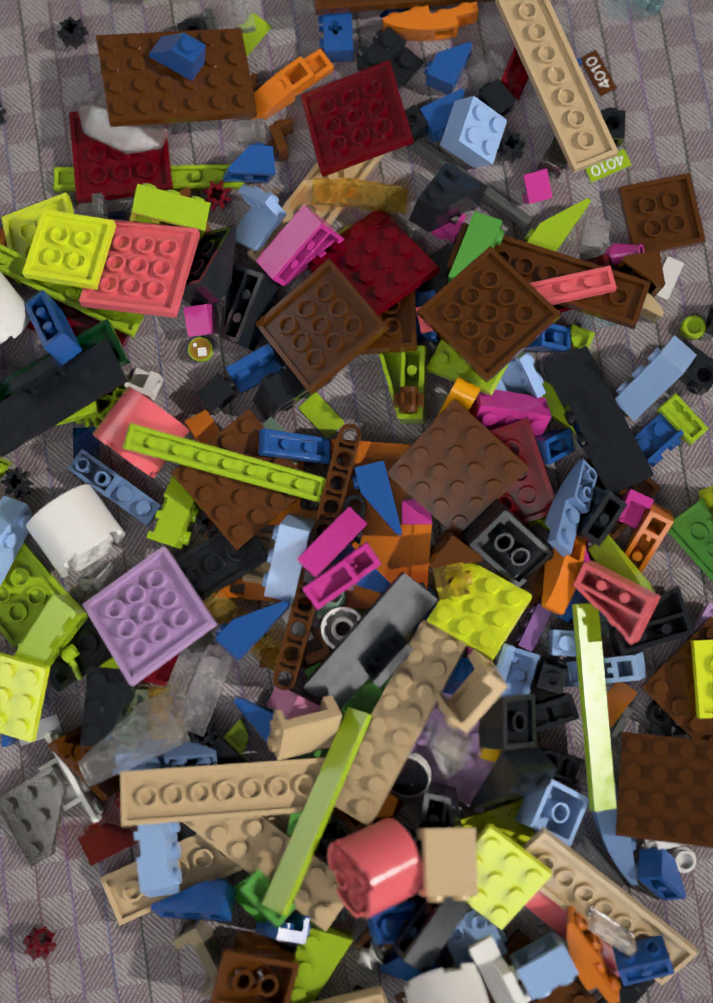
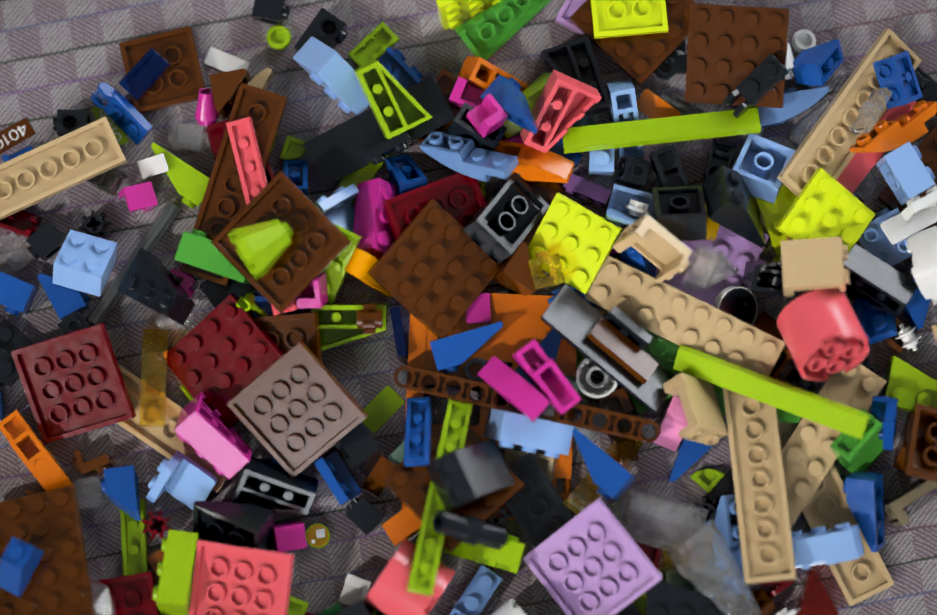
camera: 90 degrees left, 0 degrees up
(189, 490) = (469, 529): none -> black piece
(246, 493) = (469, 475): none -> black slope
(259, 410) = (374, 482): none -> reddish brown sticker
(367, 655) = (622, 350): none -> tile
(396, 433) = (398, 332): none -> clear blue tile
(430, 284) = (248, 303): none -> lime hand
(435, 349) = (315, 295): none -> dark pink panel
(485, 289) = (261, 245): none -> lime cone
(513, 677) = (637, 208): none -> white plate
(567, 201) = (153, 166): none -> white sticker
(612, 526) = (487, 116): none -> dark pink panel
(620, 173) = (121, 112): none -> blue hinge
(626, 550) = (512, 101): none -> blue slope
(631, 426) = (389, 101): none -> lime wedge
(642, 810) = (757, 84): none -> black hinge
(658, 195) = (144, 74): none -> clear blue tile

